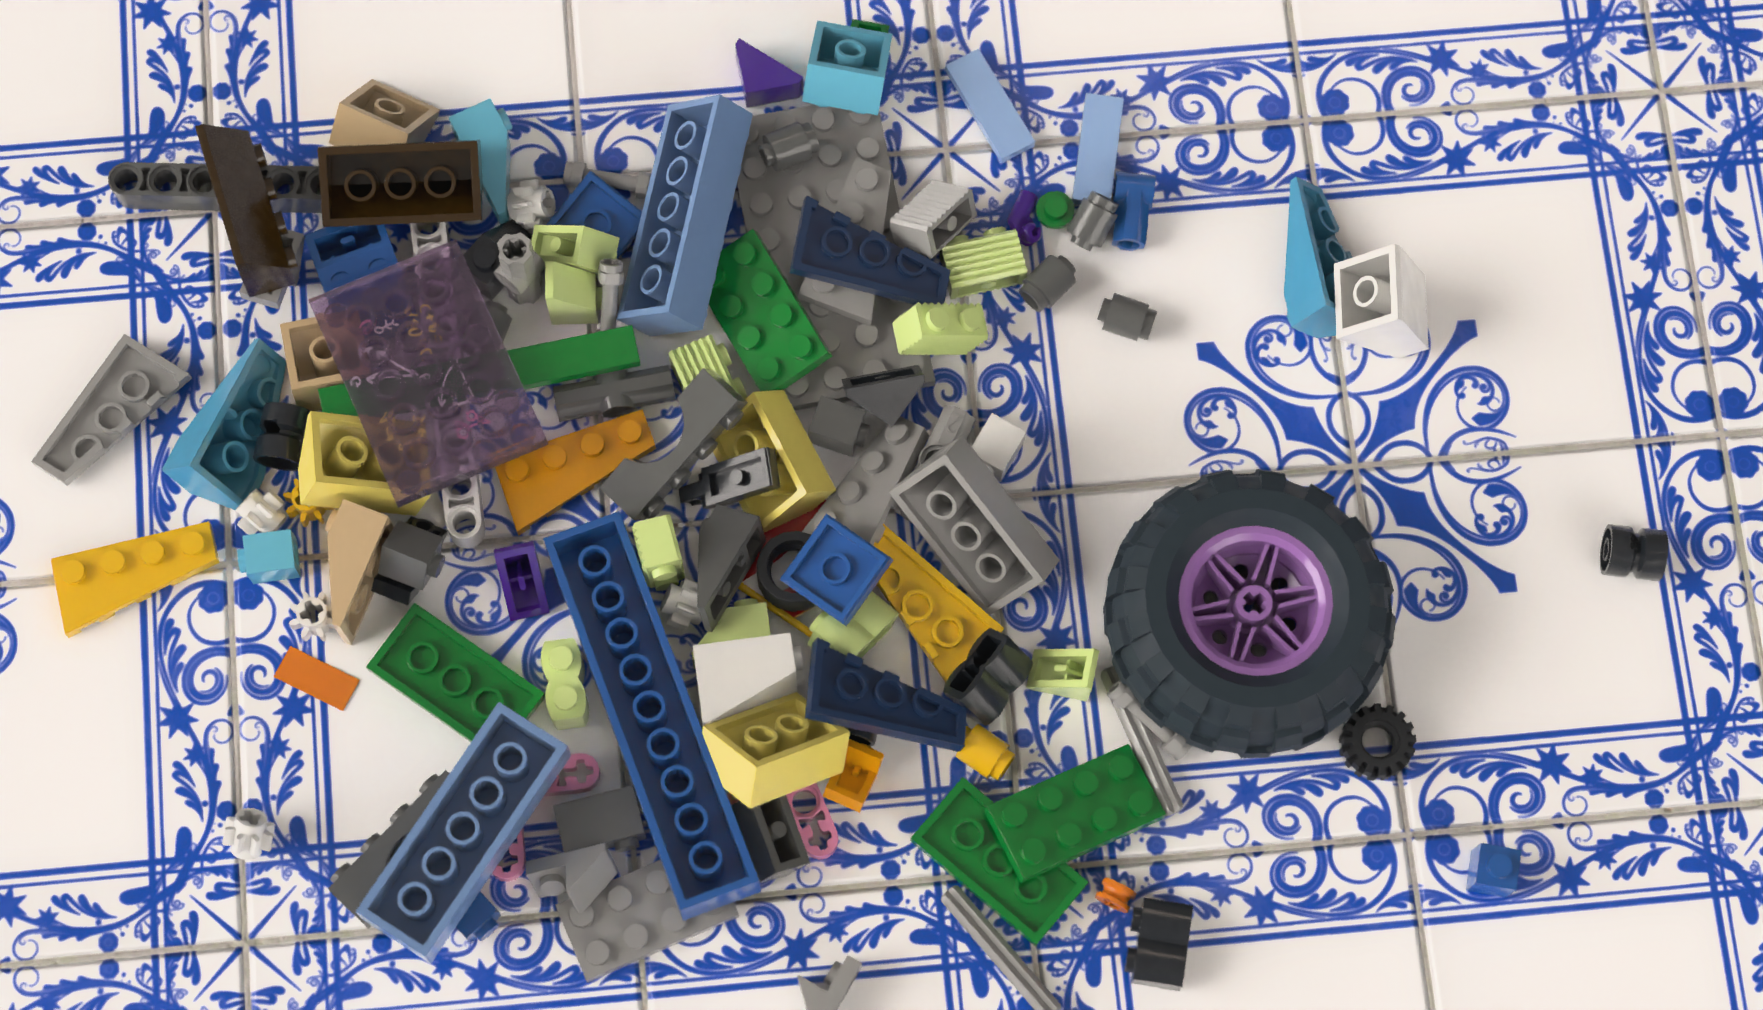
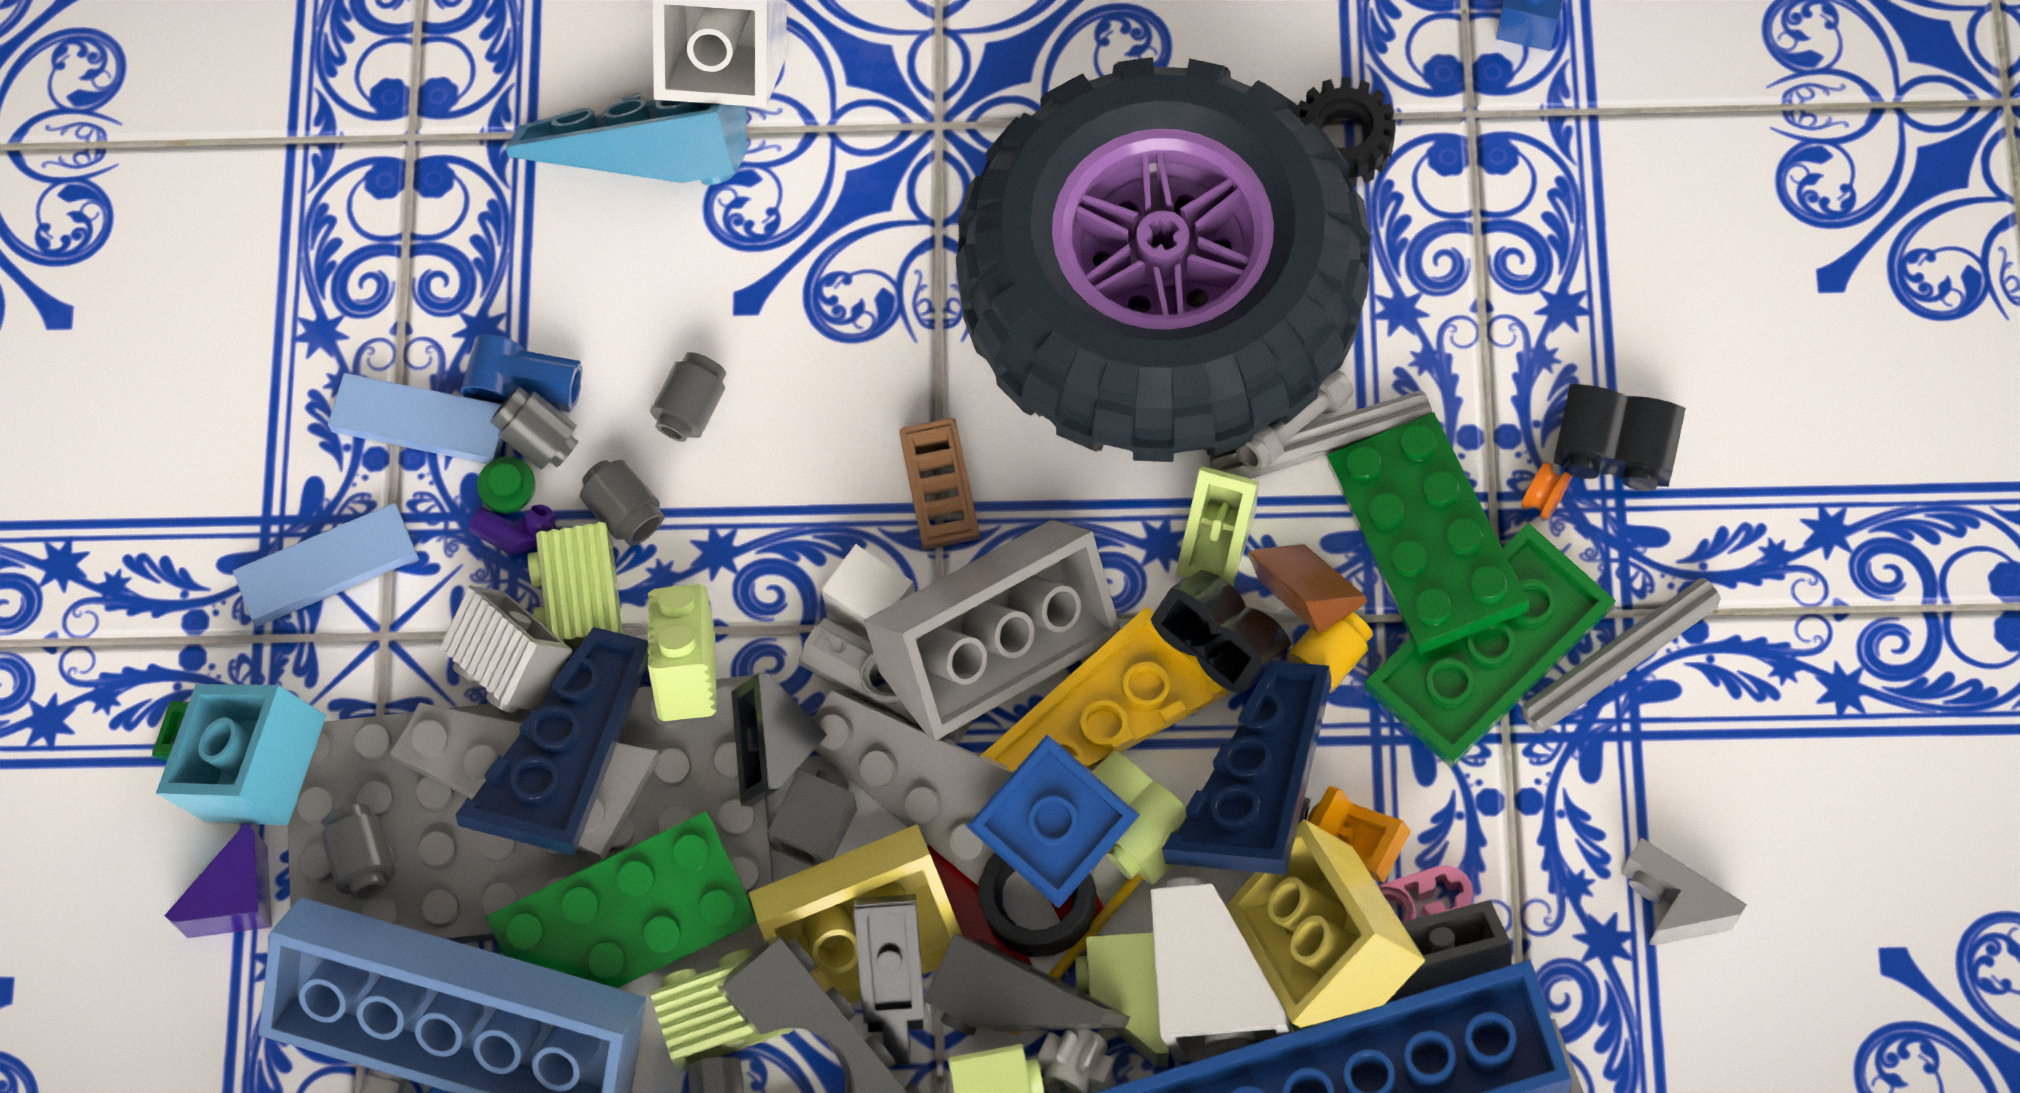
camera: 75 degrees left, 5 degrees down
(1028, 732) = (1306, 584): none -> dark orange slope
(1093, 469) = (928, 438): none -> medium nougat slope

